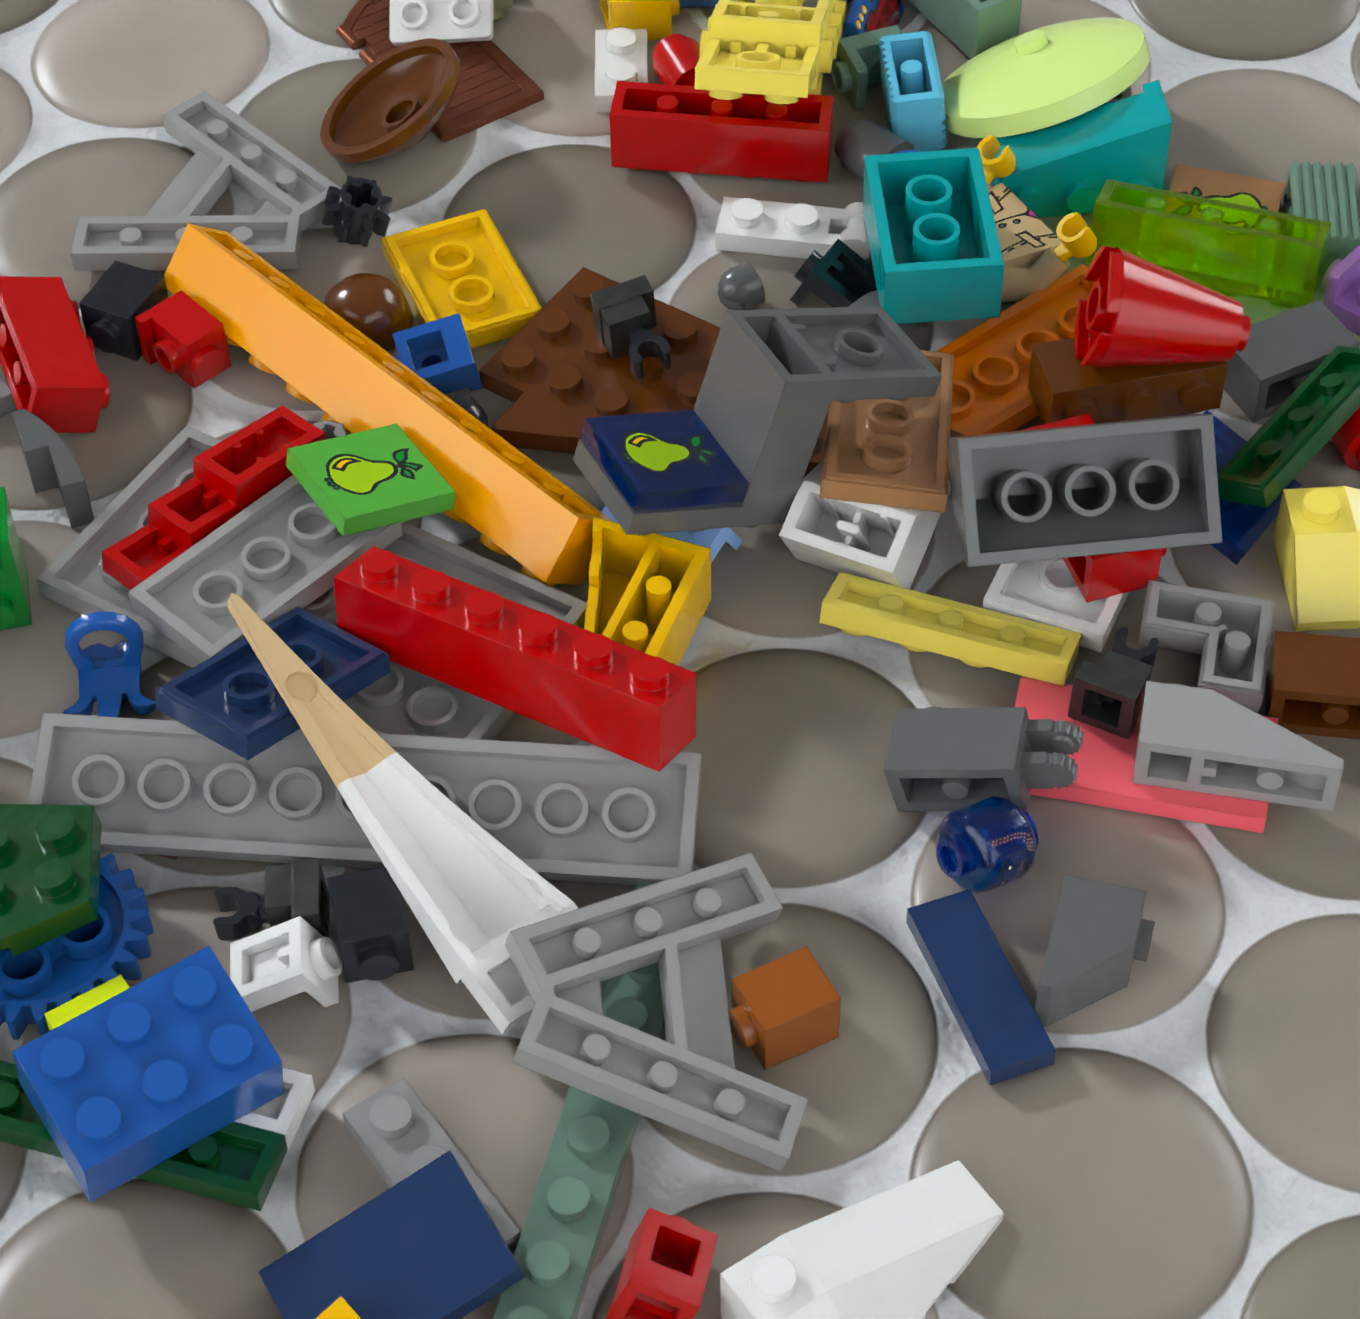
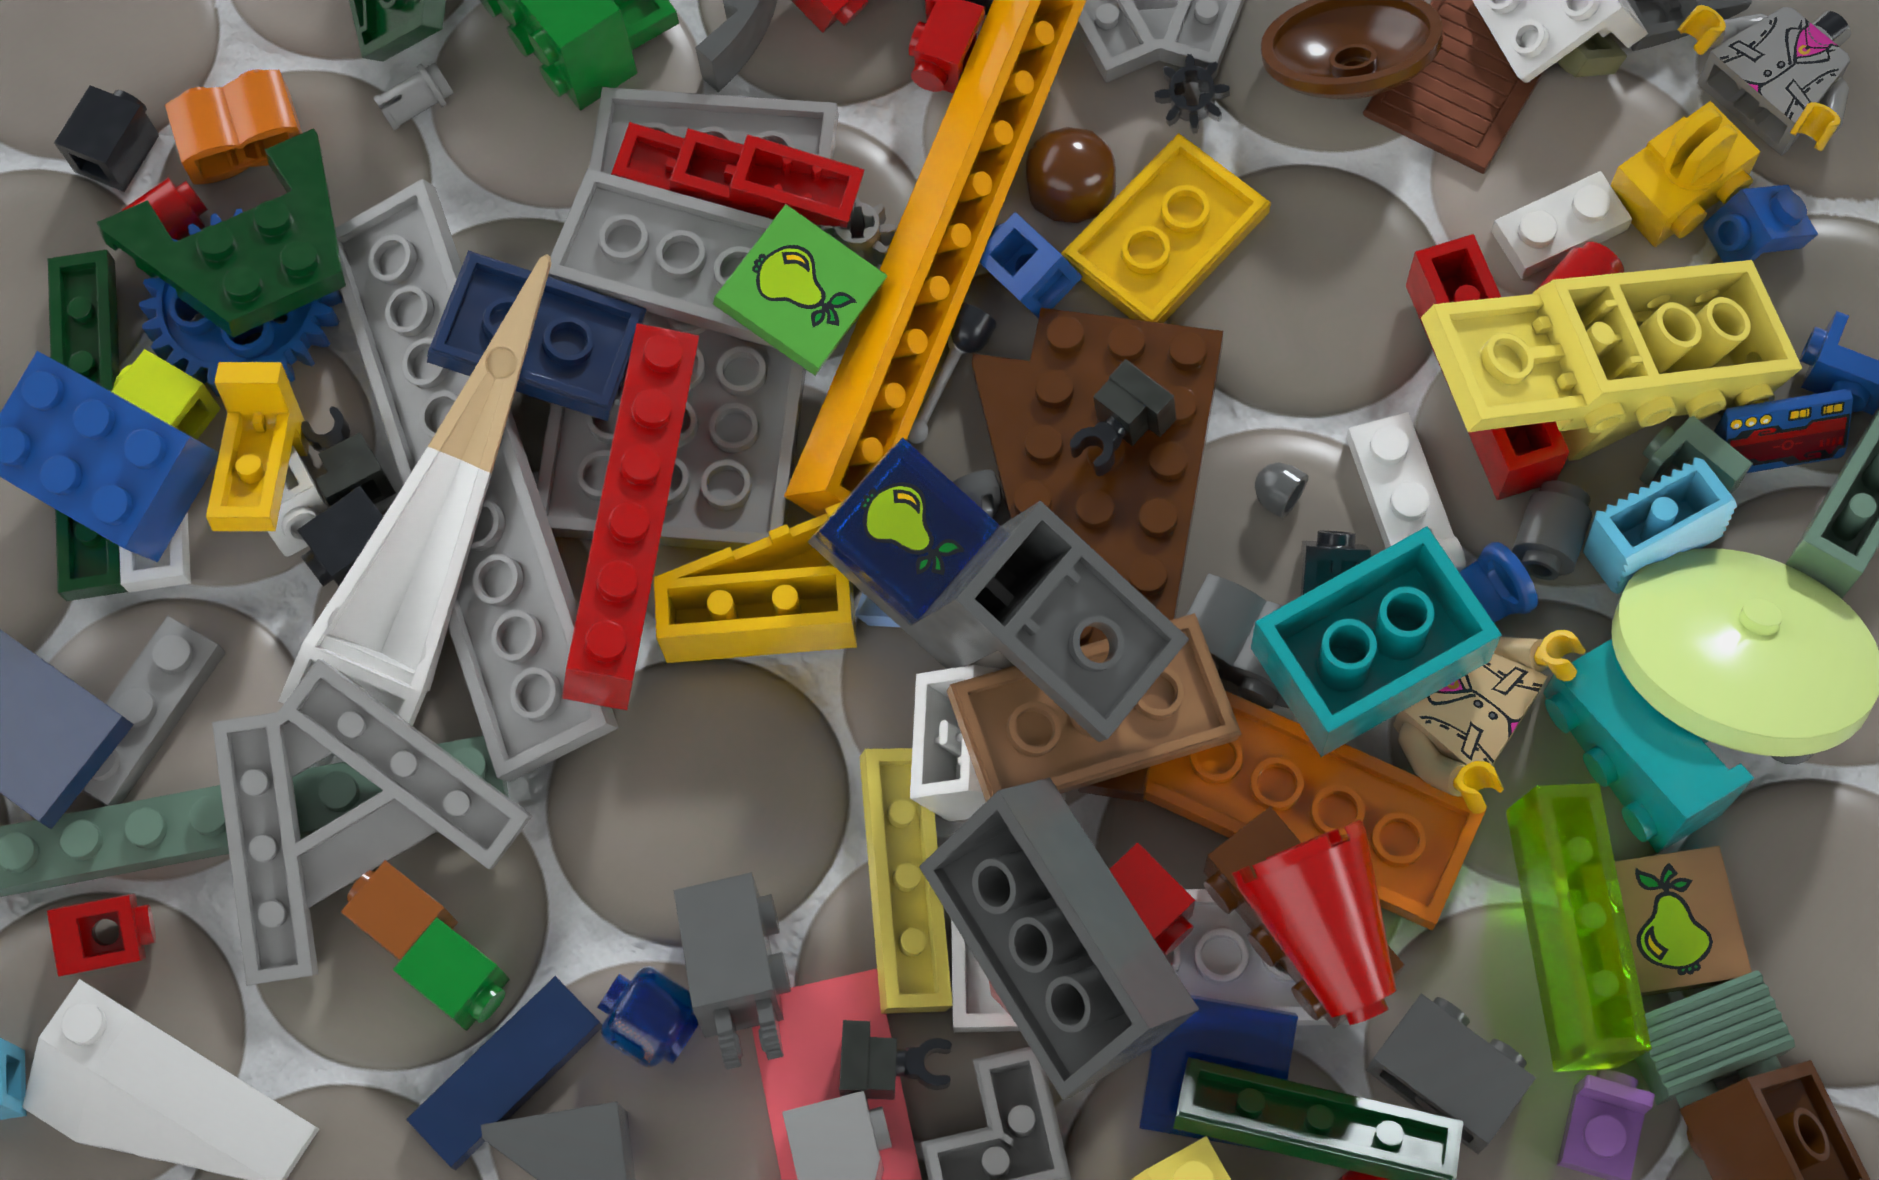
camera: 70 degrees right, 20 degrees up
(106, 672) = (528, 205): blue piece -> none
(249, 944) = (255, 446): none -> yellow bracket
(875, 981) = (453, 975): none -> green brick

